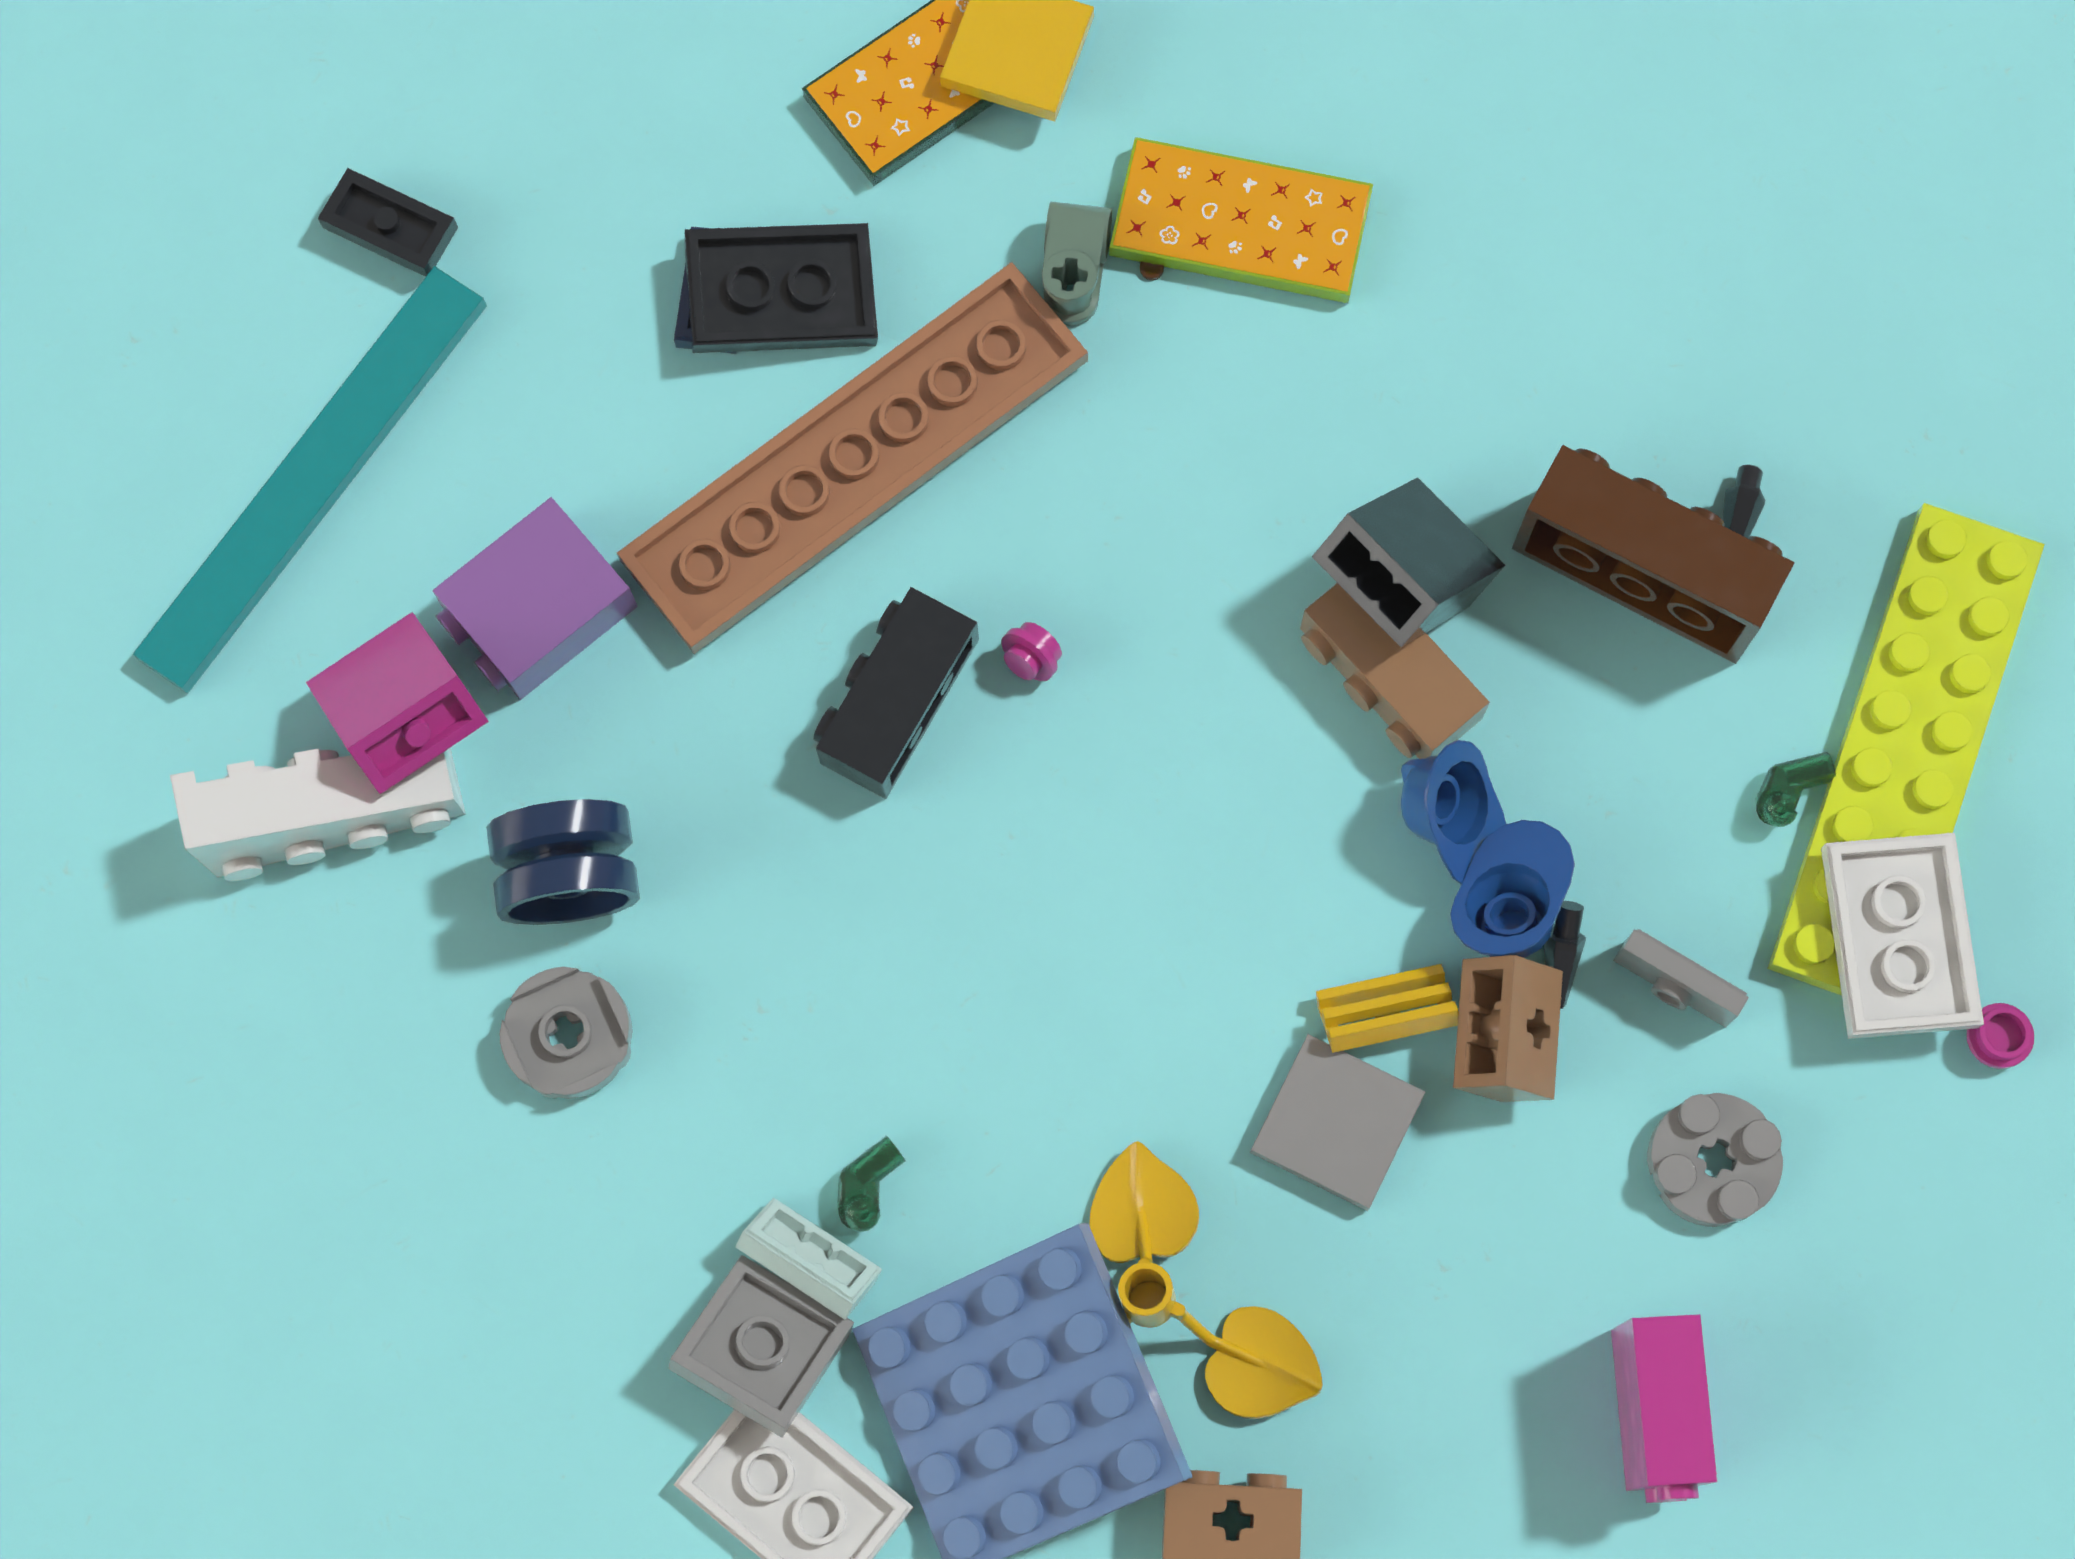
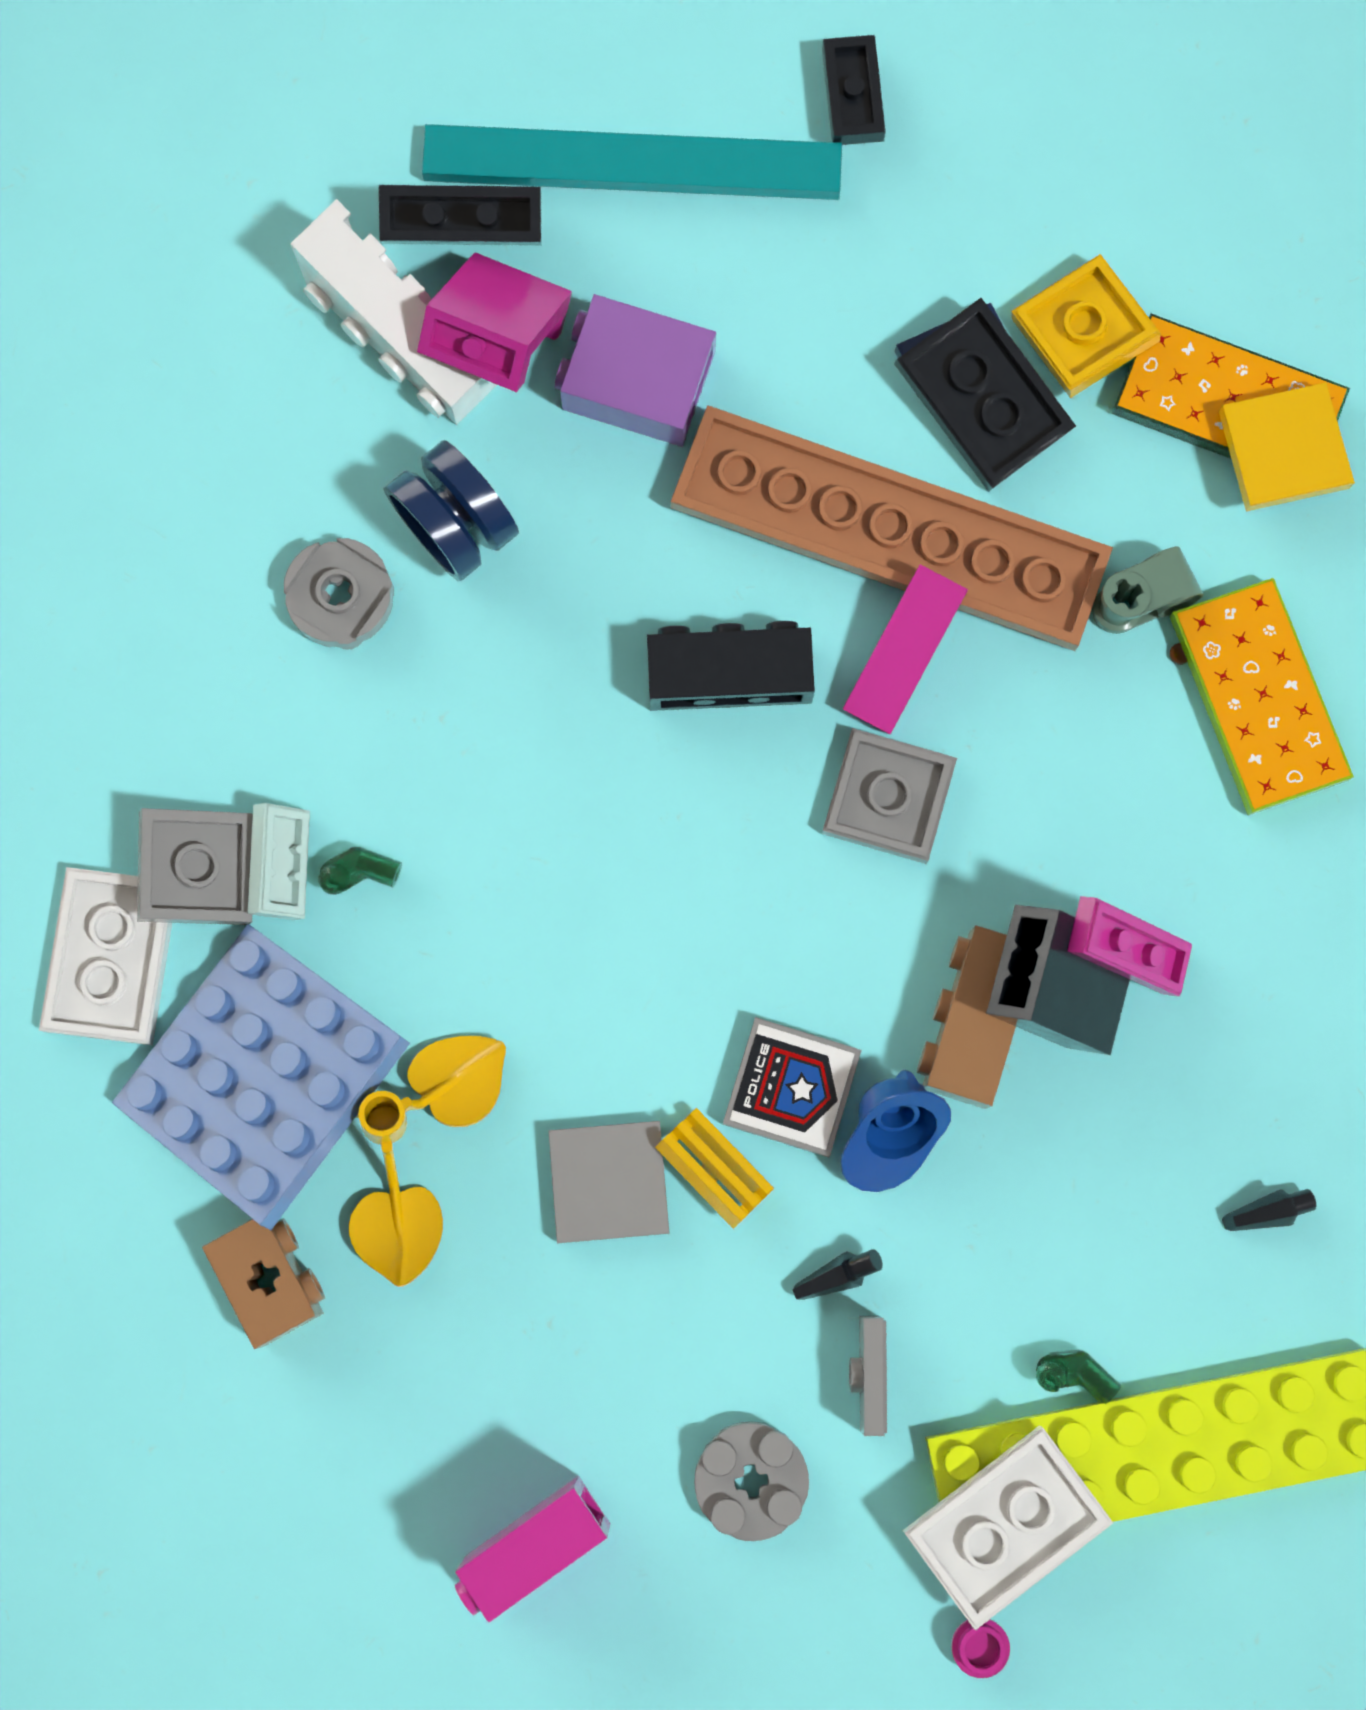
camera: 55 degrees right, 5 degrees up
(259, 672) = (459, 215): none -> black brick
(774, 154) = (1085, 326): none -> yellow tile
(986, 514) = (905, 649): none -> dark pink tile
(1031, 652) = (821, 745): dark pink plate -> none
(1120, 620) = (889, 796): none -> light grey tile
(1351, 887) = (792, 1087): none -> tile
(1415, 480) = (1129, 946): none -> dark pink tile
(1508, 1029) = (750, 1267): medium nougat brick -> none
(1513, 890) = (857, 1209): blue piece -> none
(1652, 553) = (1190, 1160): reddish brown brick -> none

